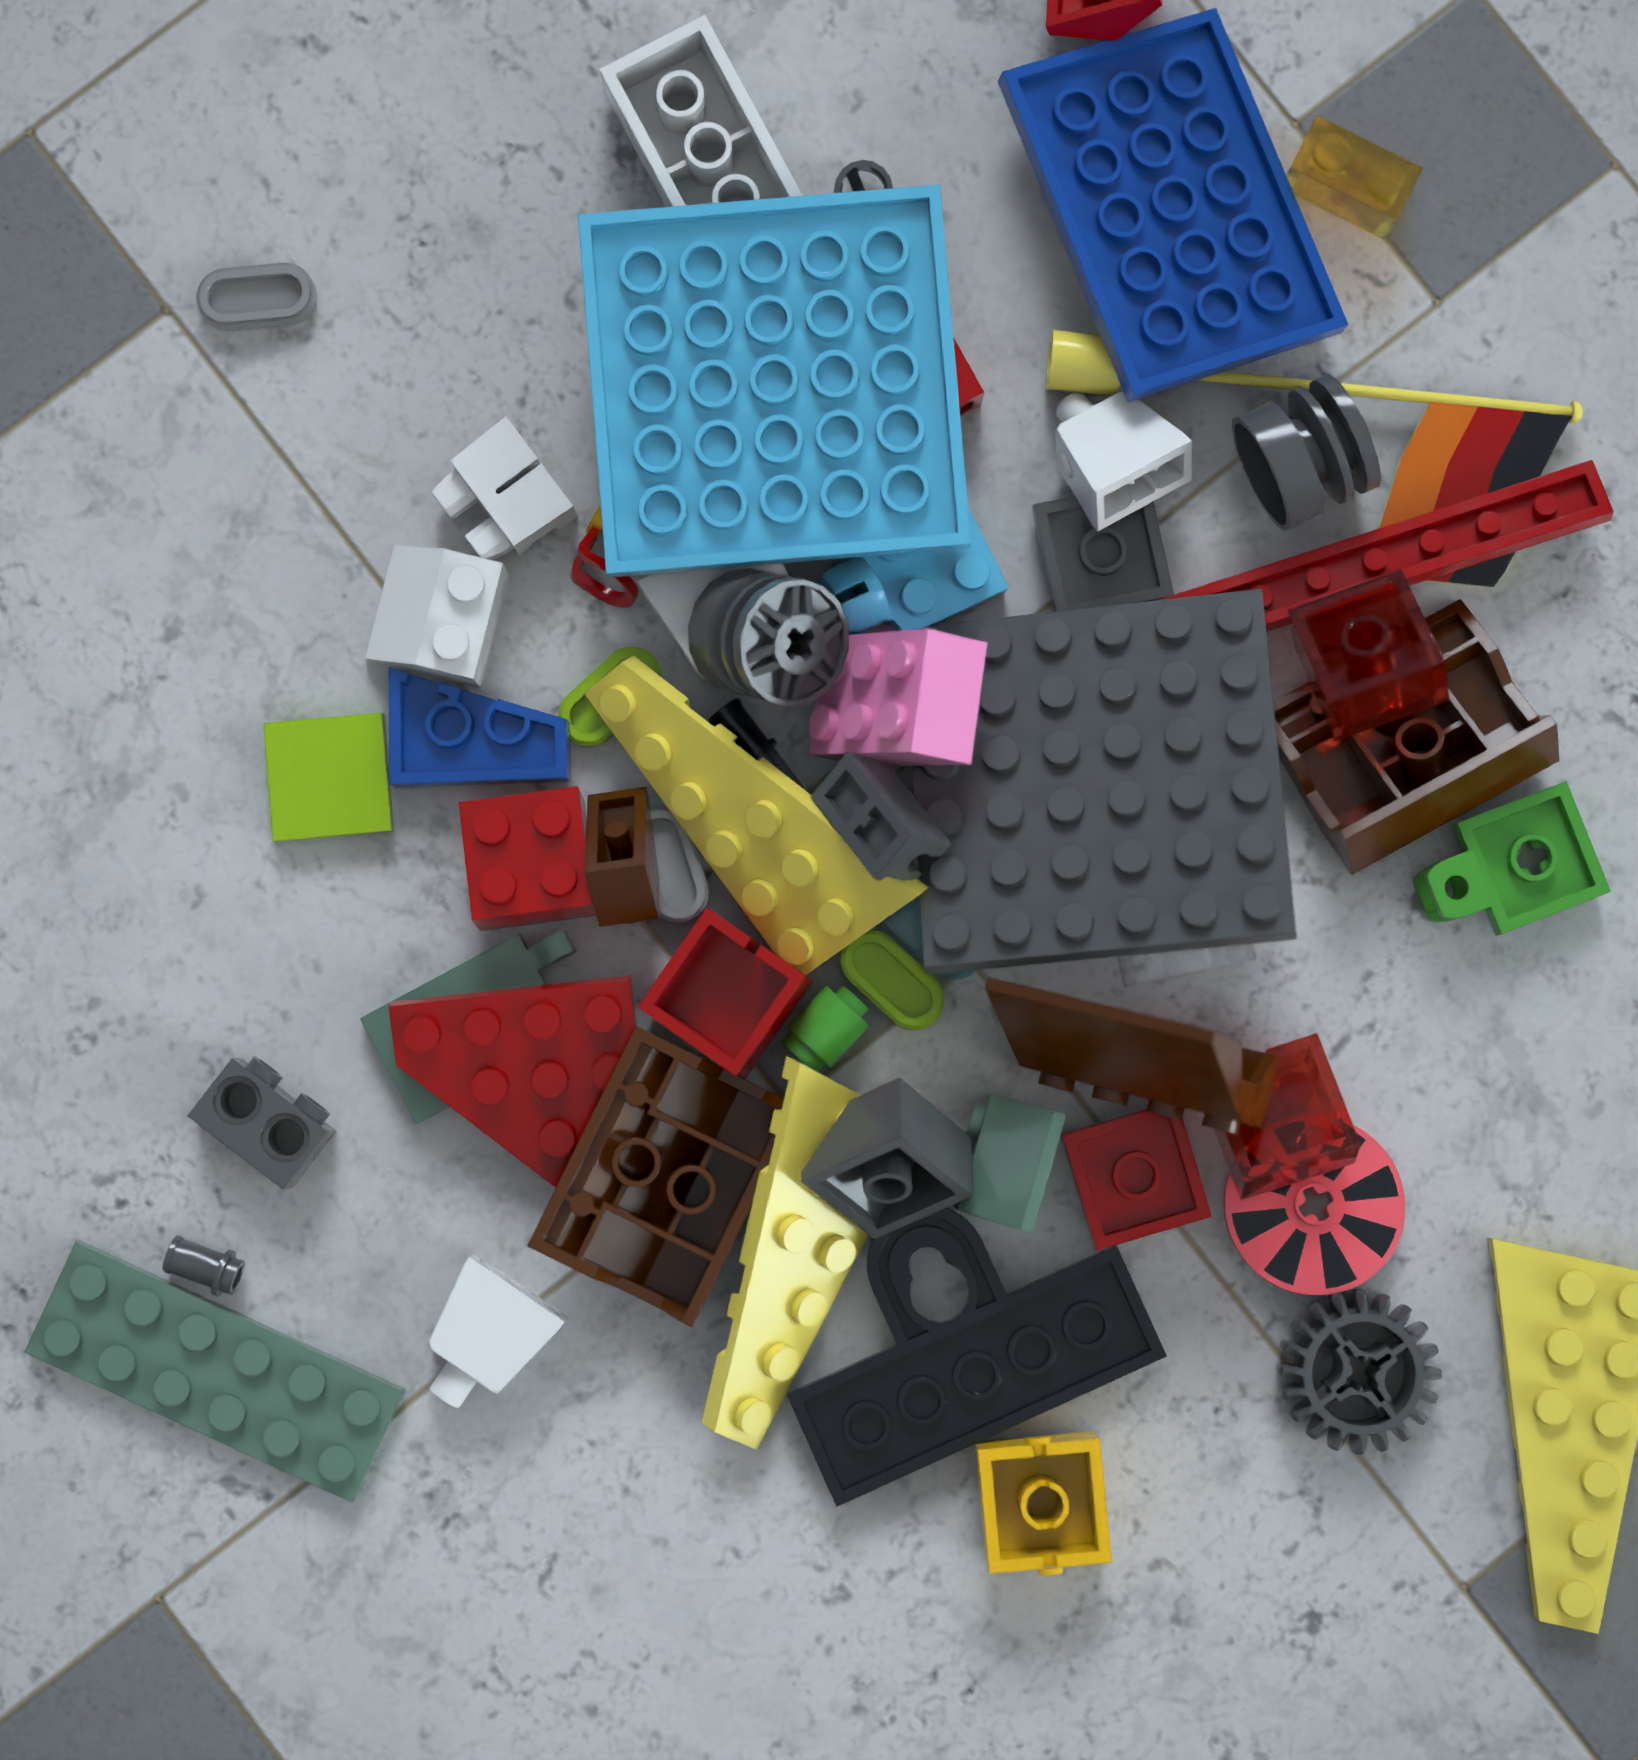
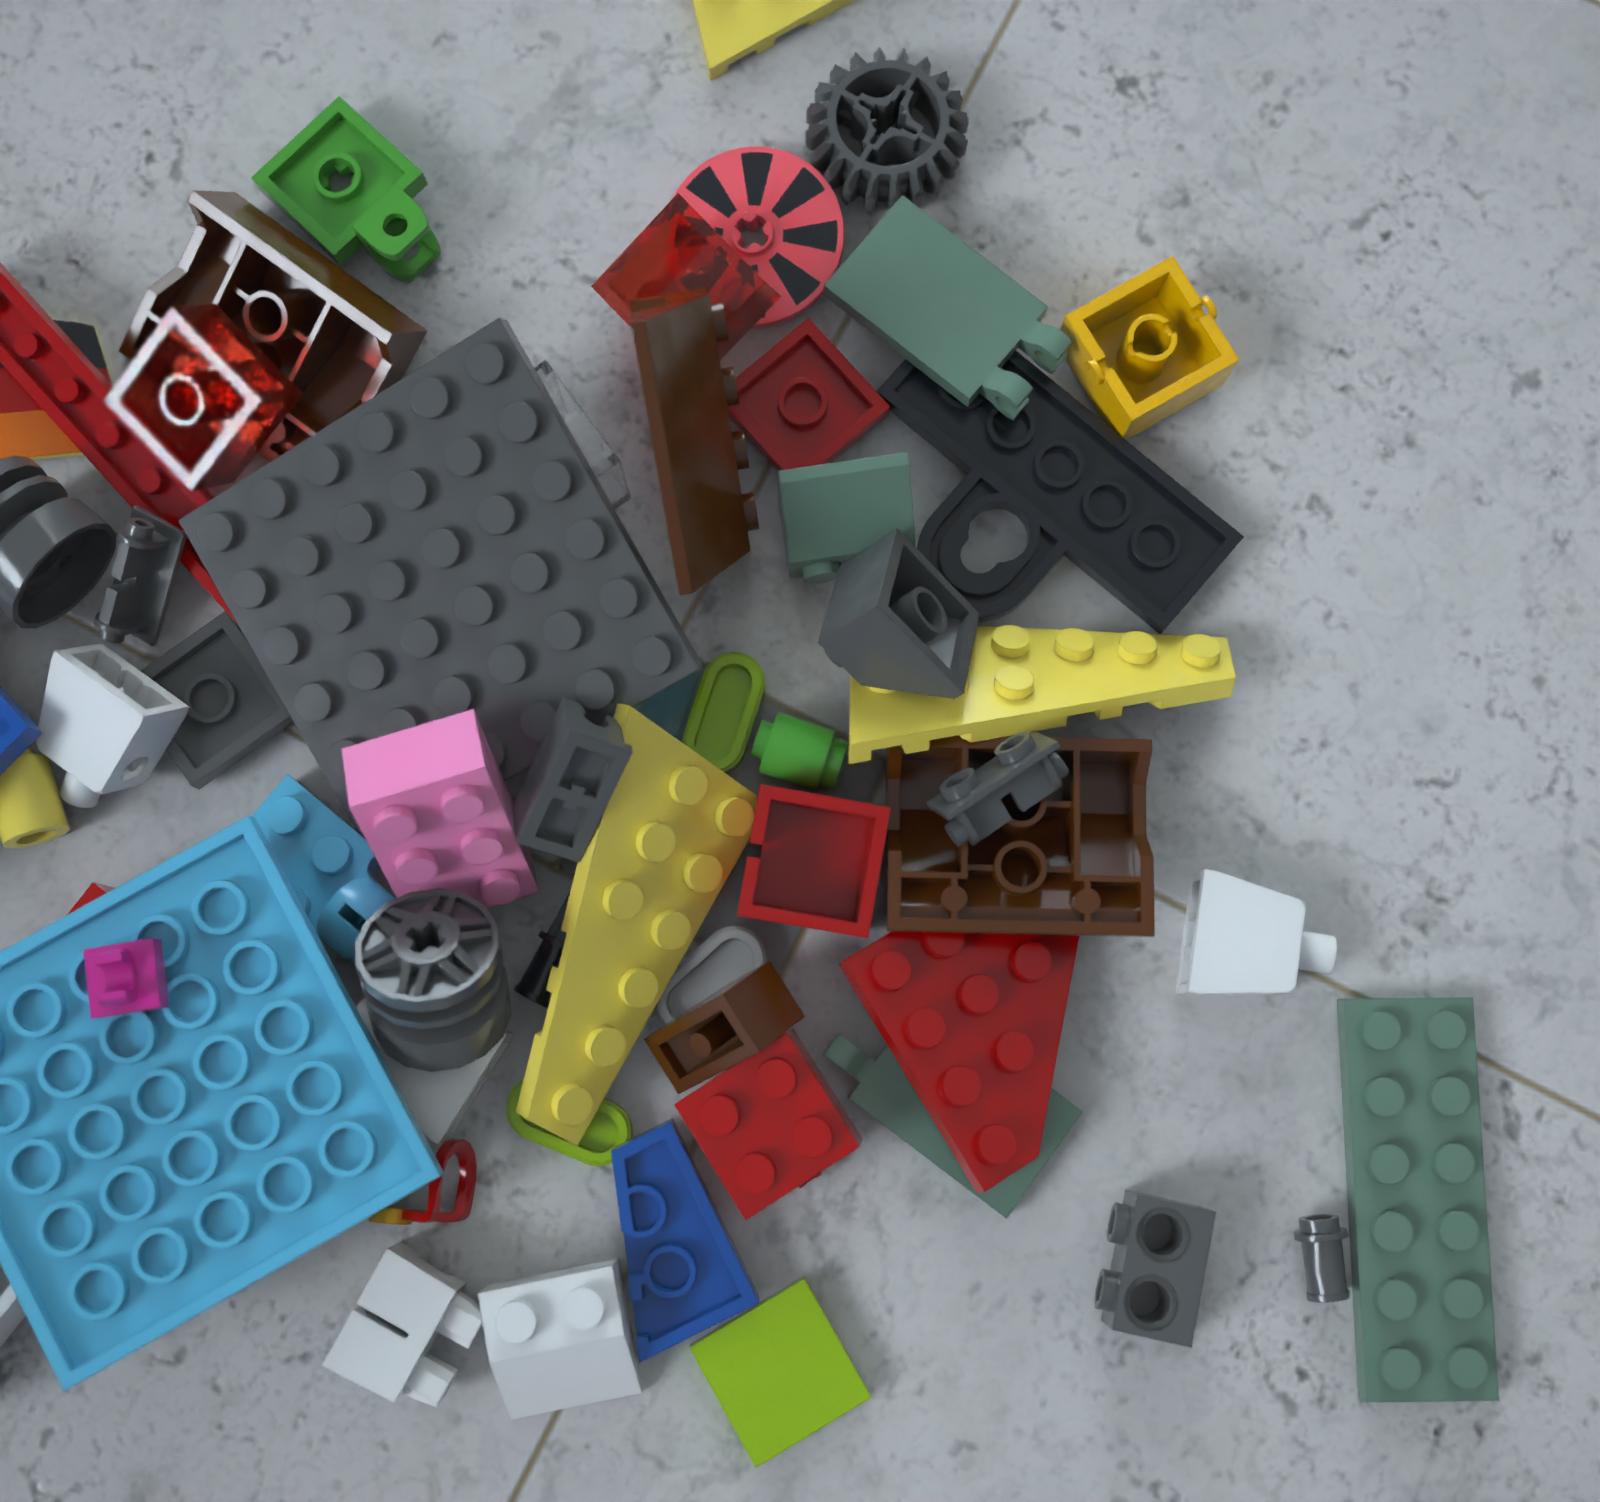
camera: 115 degrees left, 5 degrees down
(718, 1201) = (1017, 769): none -> dark grey hinge
(879, 392) = (126, 978): none -> dark pink tile
(1164, 1340) = (946, 308): none -> sand green tile
(1233, 536) = (143, 578): none -> dark grey hinge

